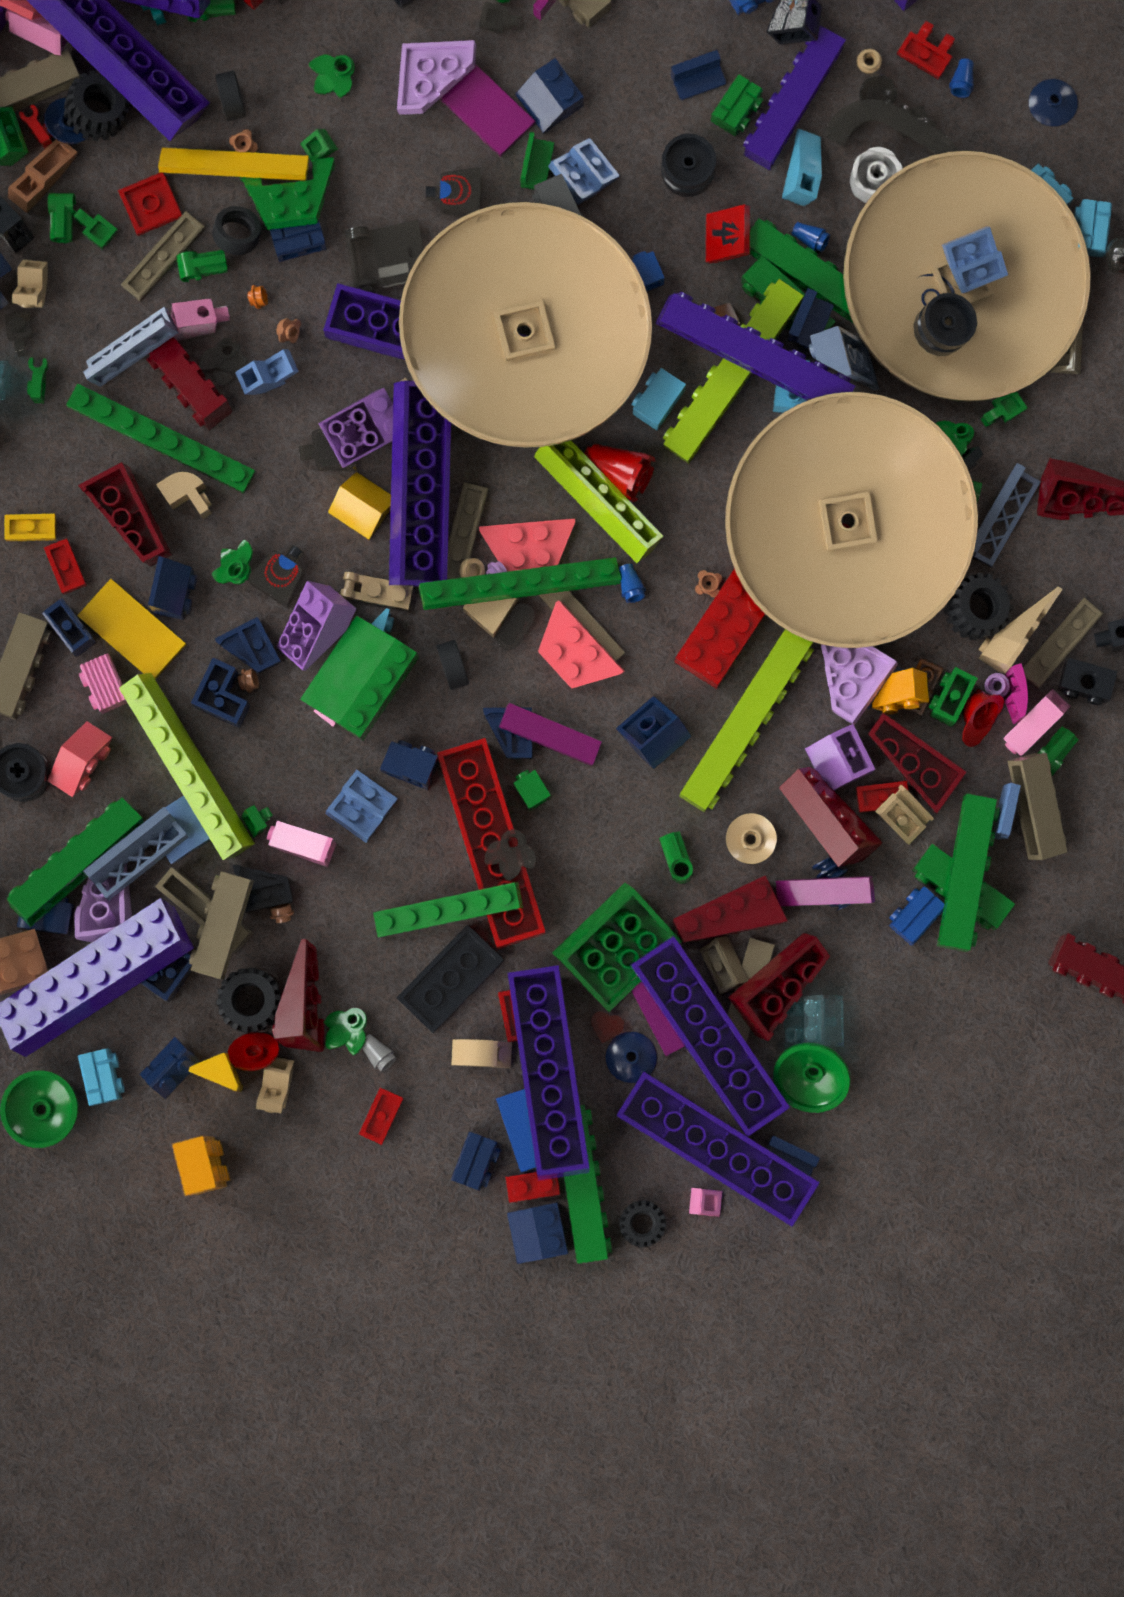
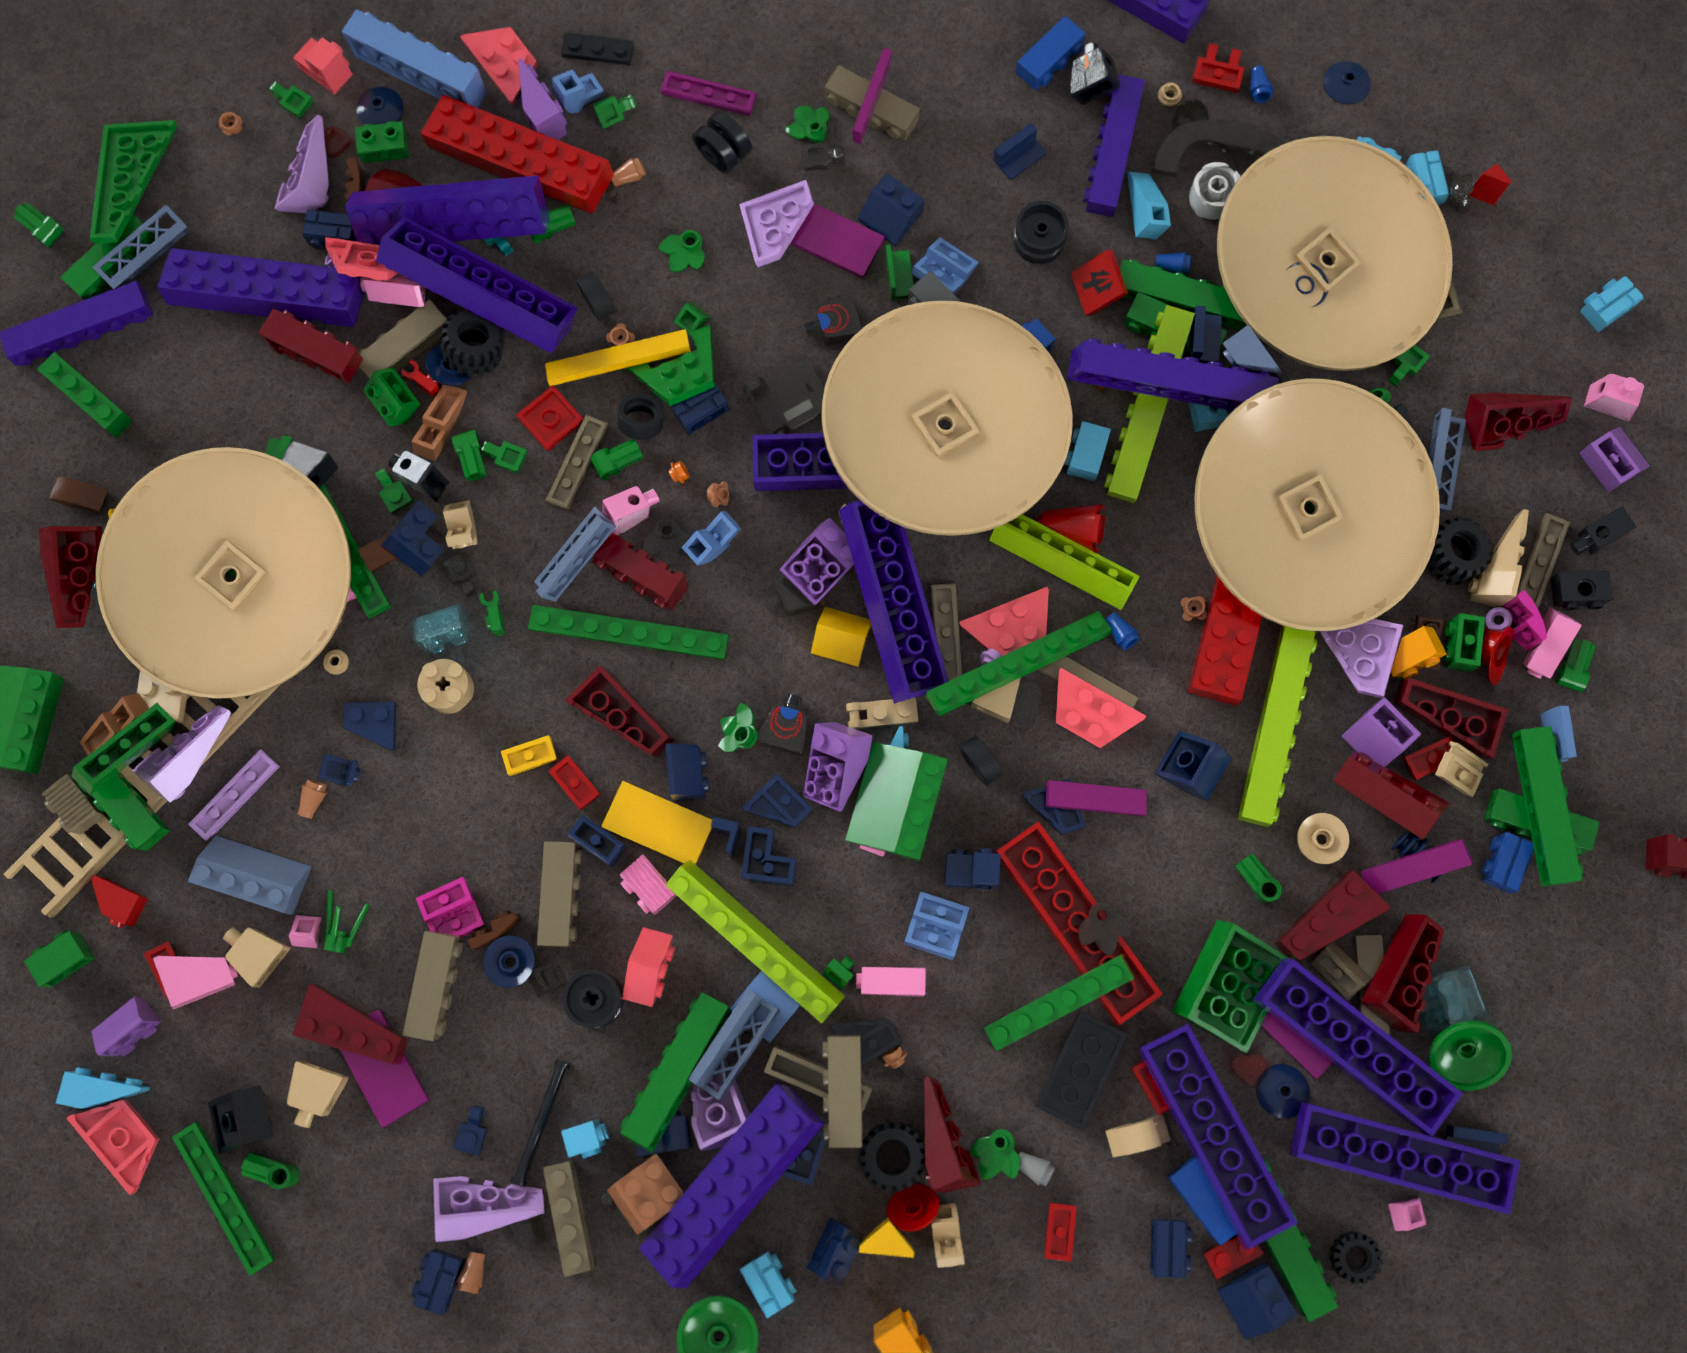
camera: 15 degrees left, 5 degrees down
(182, 487) = (665, 671): tan brick -> none
(197, 657) = (729, 829): none -> dark blue panel
(248, 680) = (787, 837): nougat plate -> none
(471, 567) = (966, 663): tan tile -> none
(531, 789) = (1096, 857): green brick -> none
(737, 105) = (1065, 167): green brick -> none
(945, 324) = (1334, 300): black wheel -> none
(975, 259) = (1337, 235): medium blue slope -> none
(1038, 806) = (1591, 728): dark tan brick -> none

